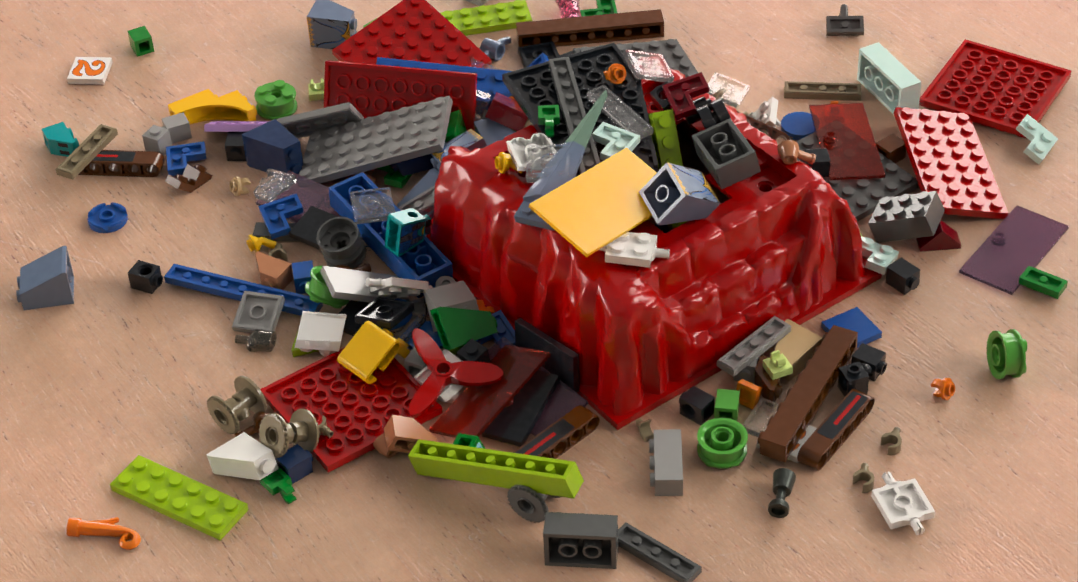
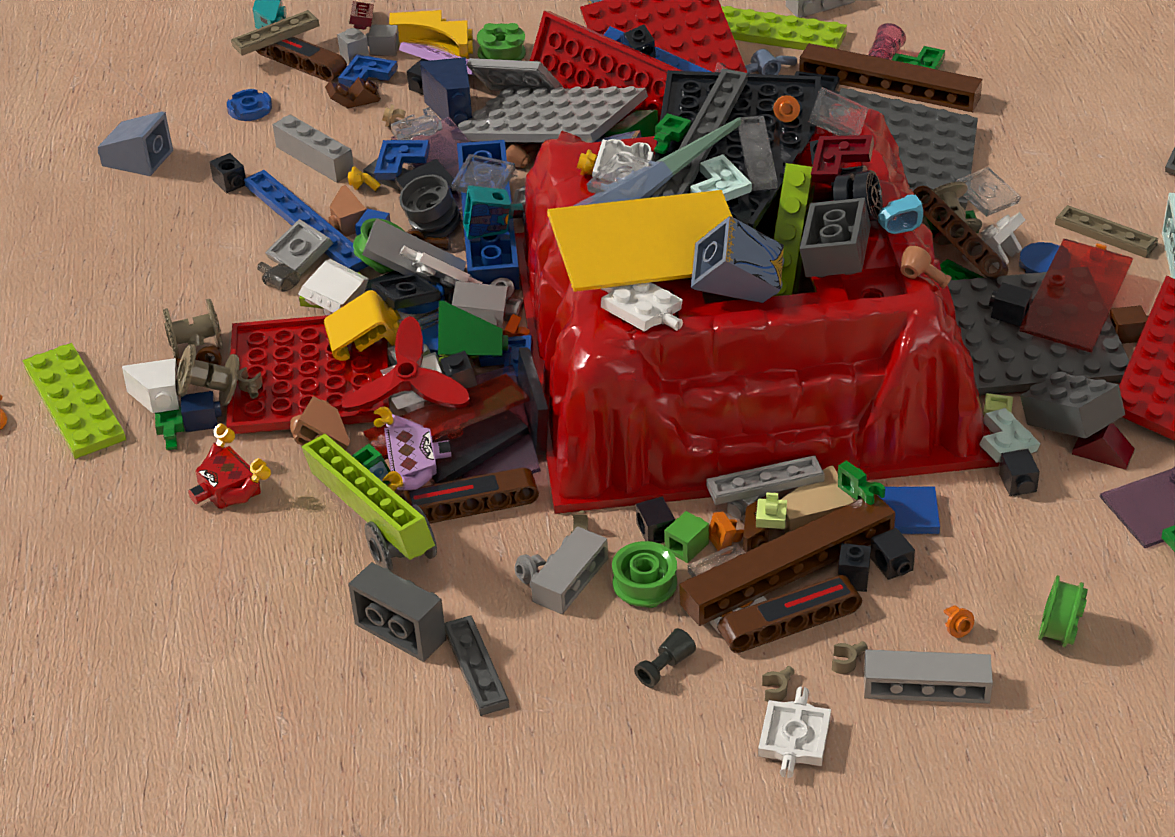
camera: 30 degrees right, 0 degrees up
(146, 113) = (361, 15): none -> dark red plate
(199, 232) = (313, 148): none -> light grey brick
(278, 252) = (371, 196): dark tan piece -> none
(361, 502) = (225, 475): none -> red torso
(416, 59) = (640, 40): none -> black brick
(496, 424) = (409, 451): none -> lavender torso
(637, 473) = (527, 567): none -> light grey plate
(753, 121) = (901, 215): none -> medium azure rock
(818, 323) = (854, 483): none -> green plate
(954, 431) = (927, 676): none -> light grey brick

